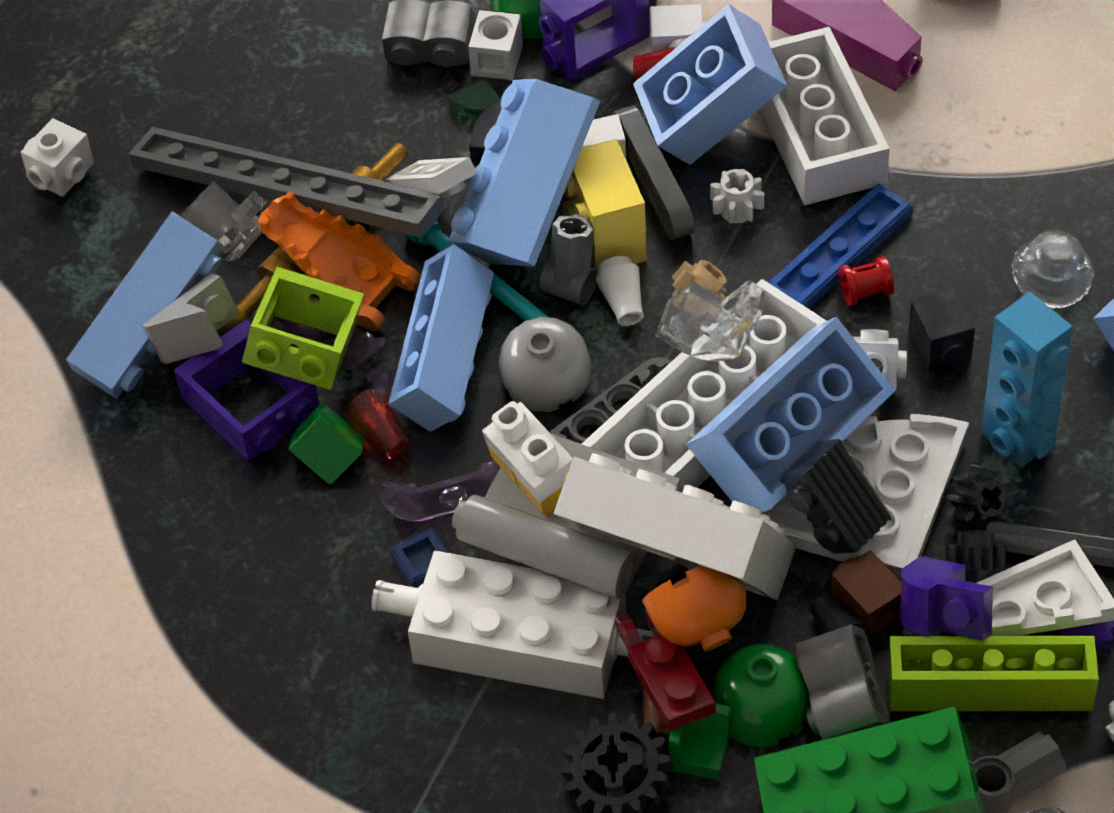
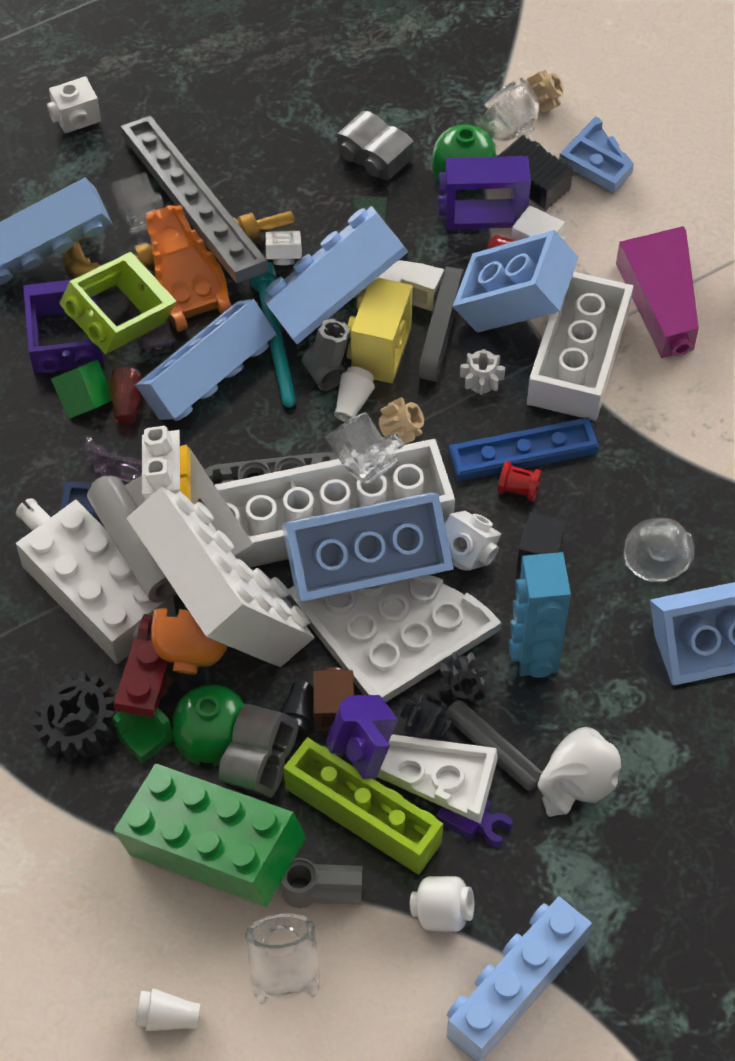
camera: 30 degrees right, 5 degrees up
(192, 321) = (57, 257): light grey slope -> none
(495, 45) = (411, 177): white brick -> none
(544, 364) = (259, 415): light grey cylinder -> none
(835, 497) = (350, 619): black brick -> none

